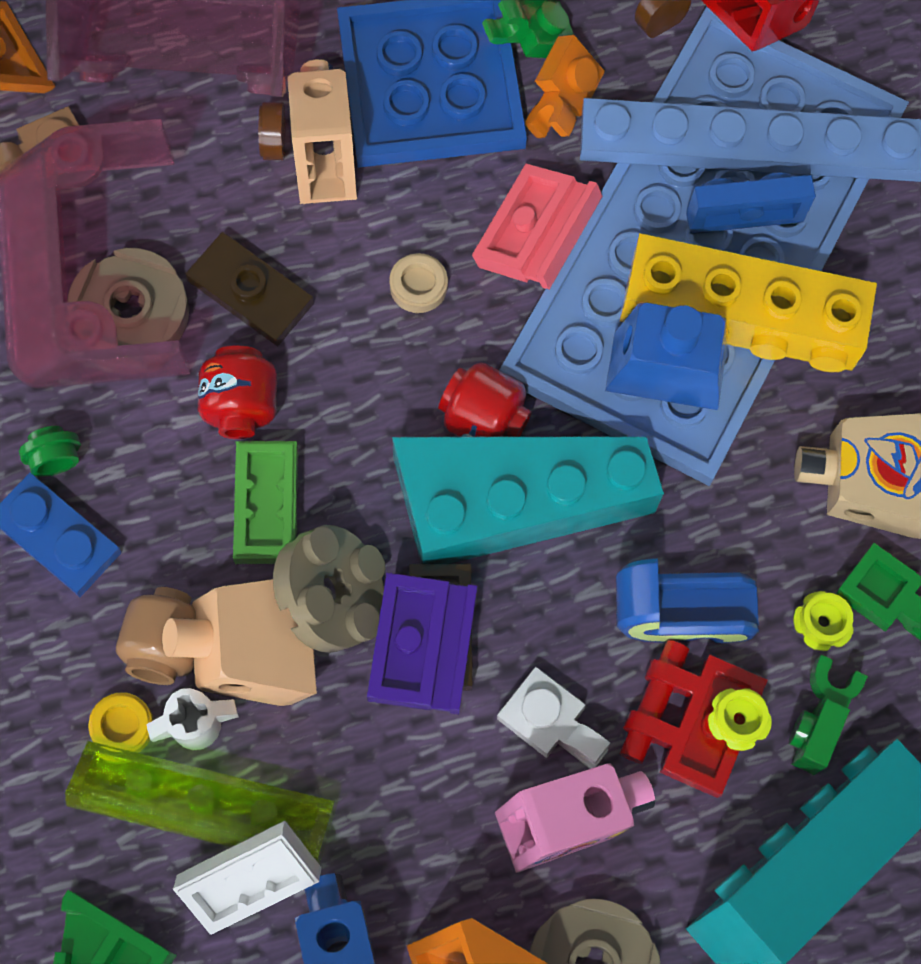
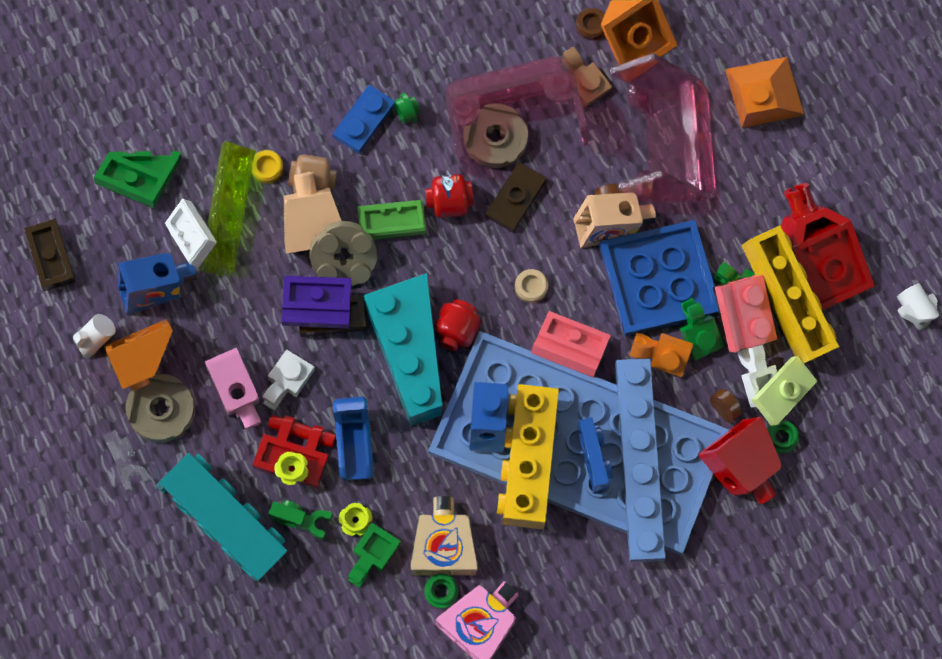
camera: 85 degrees right, 0 degrees up
(192, 719) = (269, 198): white piece -> none

